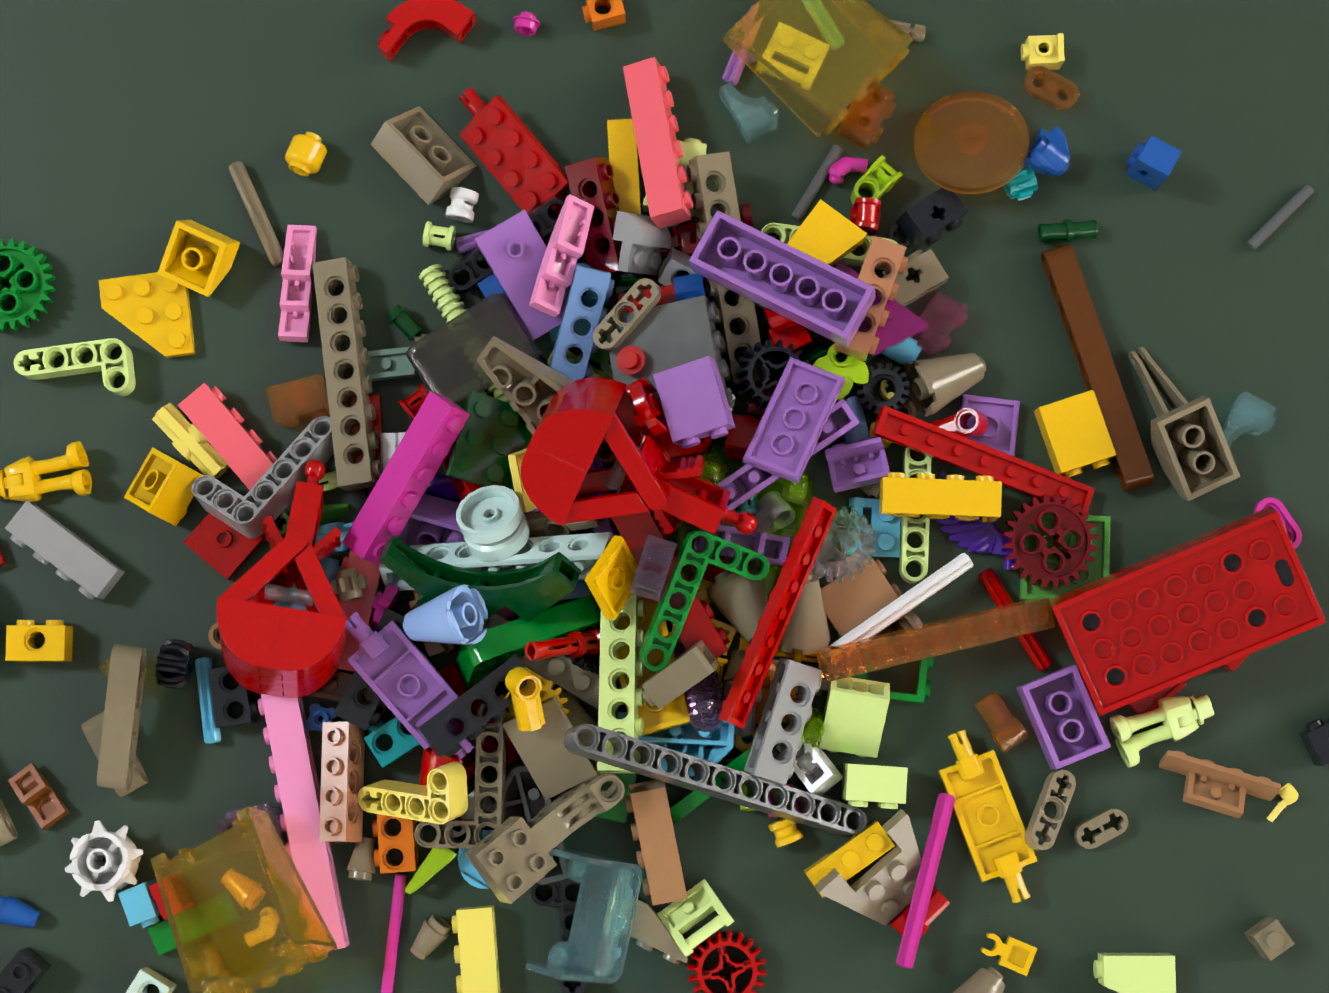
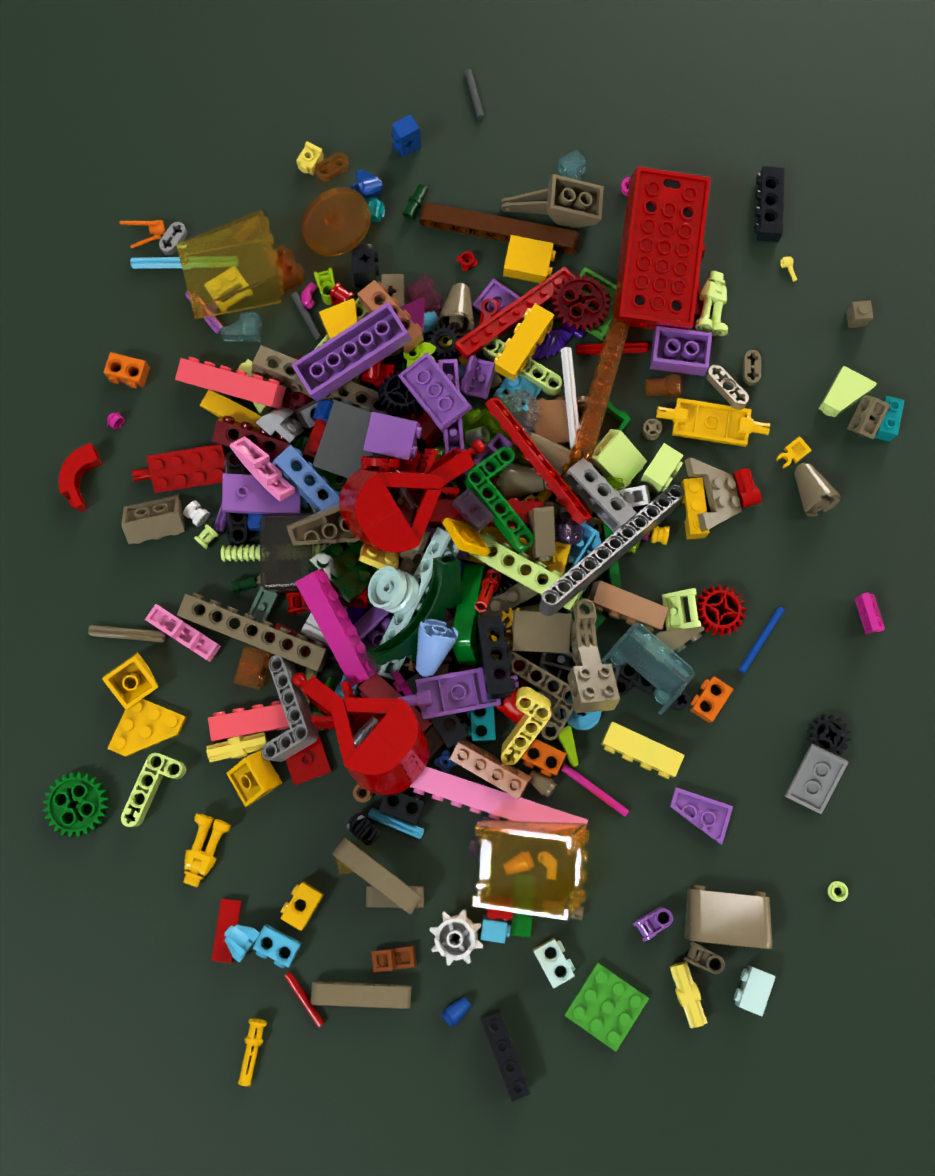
camera: 60 degrees left, 5 degrees down
(64, 550) = (255, 859): light grey brick -> none
(305, 154) = (110, 584): yellow head -> none
(349, 584) = (378, 692): dark tan gear -> none
(431, 935) = (608, 768): dark tan cone -> none
(525, 700) = (502, 621): yellow piece -> none
(617, 335) = (319, 434): dark tan beam -> none
(630, 360) = (346, 461): red plate -> none
(925, 880) = (729, 471): dark pink axle -> none
(933, 740) = (654, 426): none -> dark tan wheel
(1032, 349) = (467, 256): none -> red plate
(1217, 786) = (762, 294): medium nougat bracket -> none

